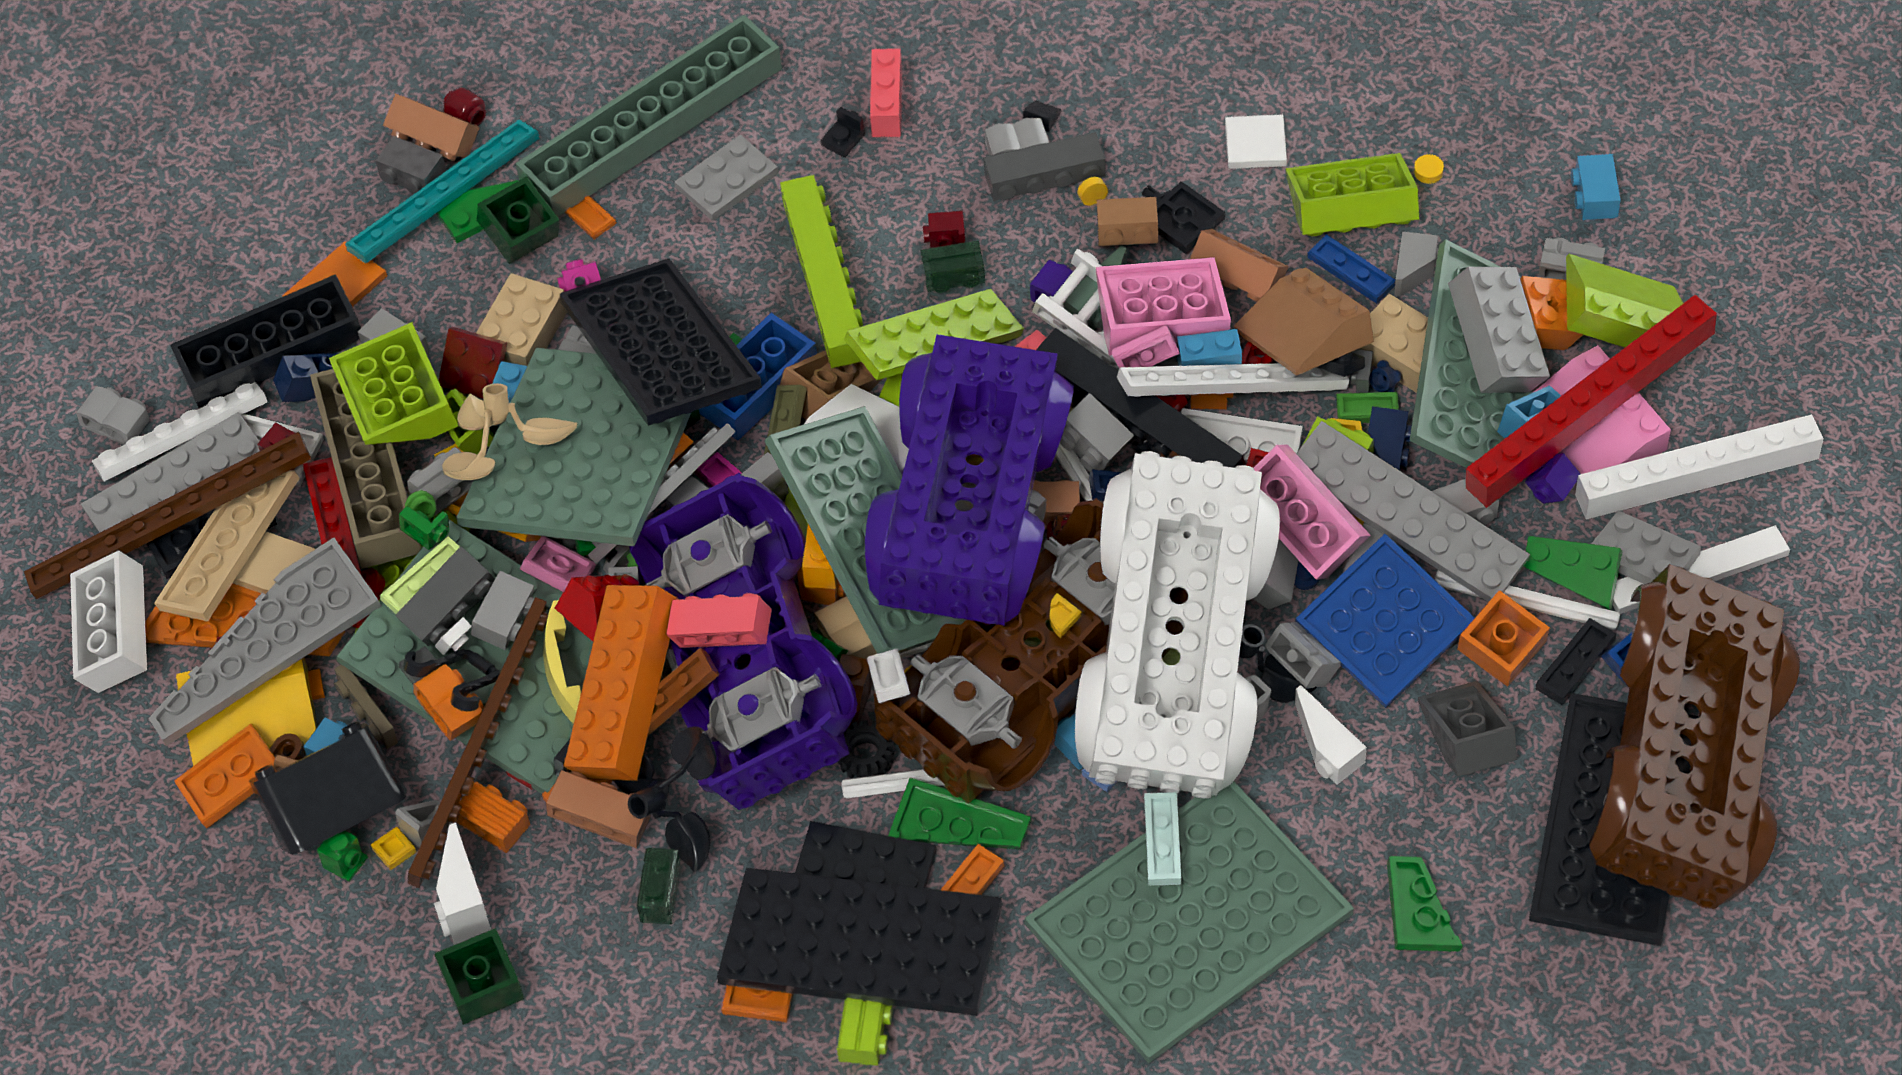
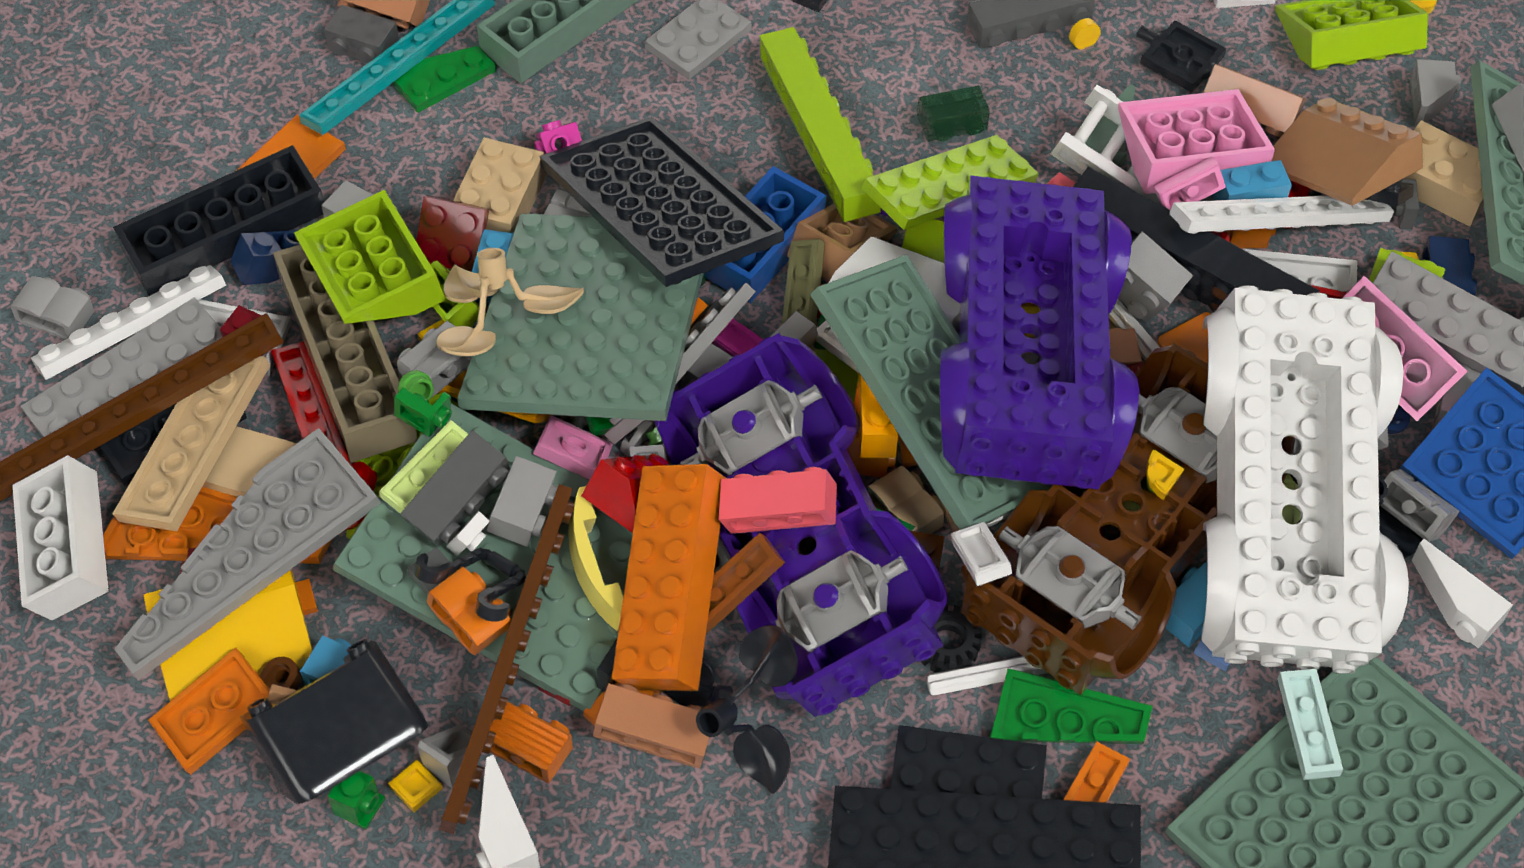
camera: 10 degrees left, 0 degrees up
(364, 706) = (366, 619): dark tan plate -> none
(518, 220) = (484, 83): dark green brick -> none
(591, 217) = (559, 80): orange tile -> none
(659, 886) = (735, 814): clear green brick -> none
(944, 229) = (939, 76): dark red brick -> none
(1049, 280) = (1060, 120): dark purple brick -> none
(1099, 482) = (1163, 331): dark blue plate -> none
(1127, 221) = (1134, 60): medium nougat slope -> none
(1351, 269) = (1358, 94): blue tile -> none
(1359, 405) = (1411, 236): bright green tile -> none
(1379, 375) = (1439, 205): dark blue plate -> none

